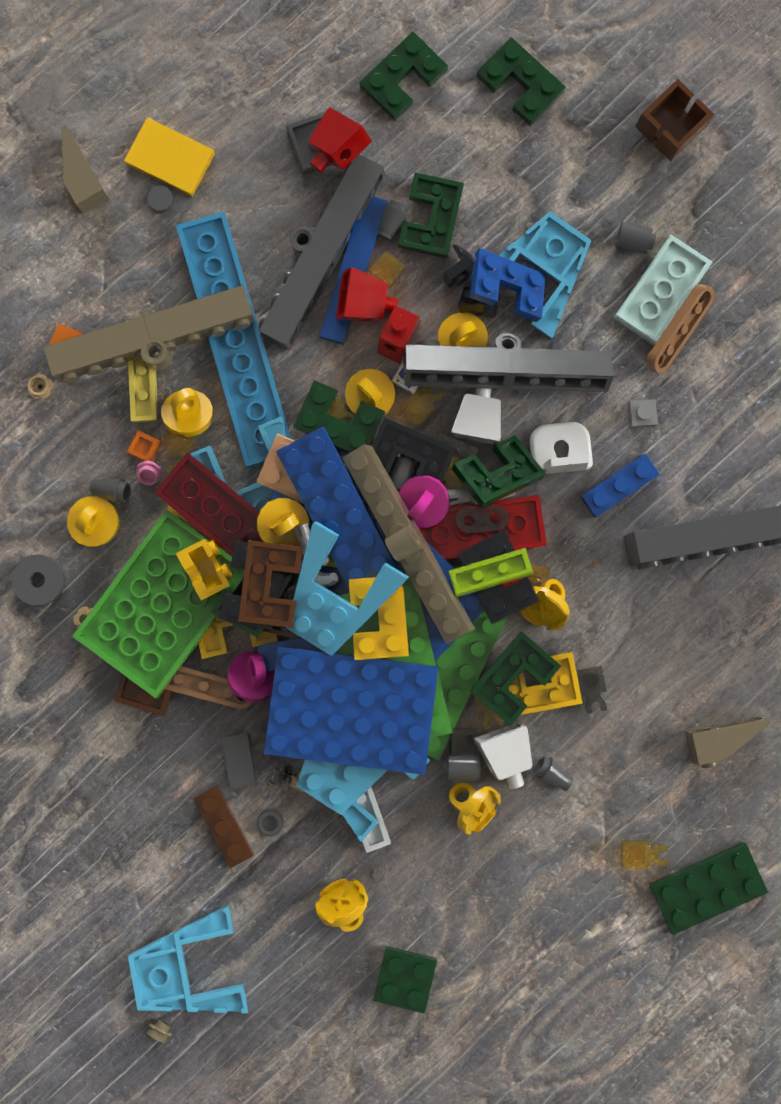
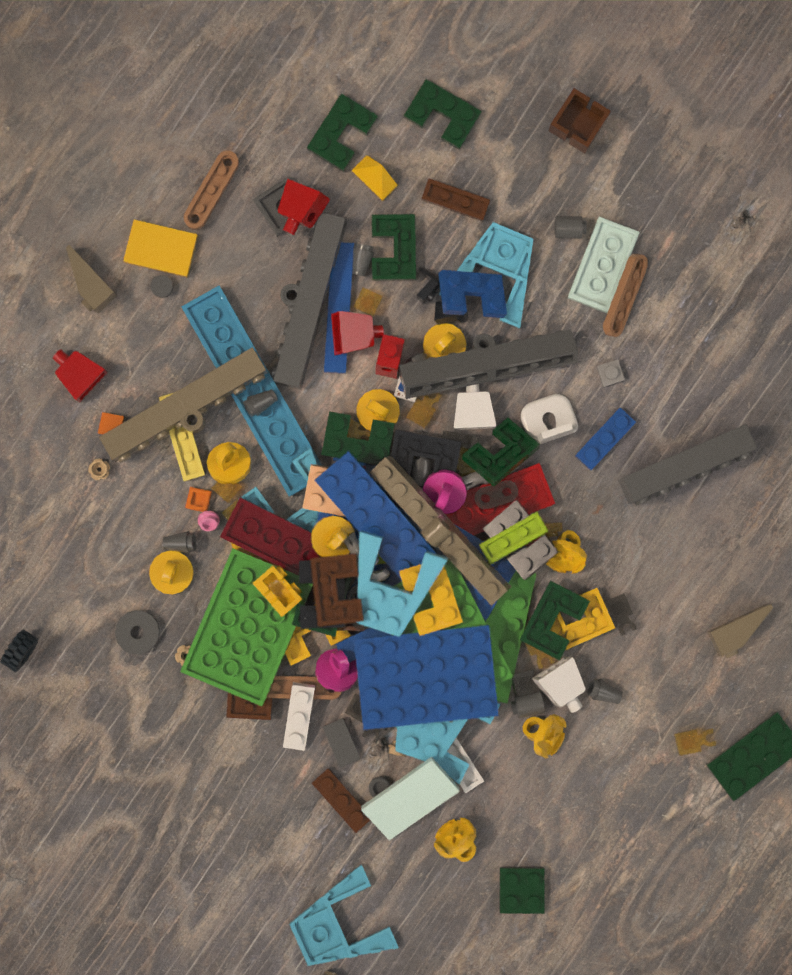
camera: 10 degrees left, 0 degrees up
(42, 274) = (78, 373): none -> red torso
(196, 718) = (298, 716): none -> white plate
(237, 351) = (259, 402): none -> dark grey cone
(241, 104) = (211, 190): none -> medium nougat plate
(301, 844) = (410, 798): none -> light aqua tile
(429, 133) = (375, 177): none -> yellow slope
(513, 178) = (455, 200): none -> reddish brown plate

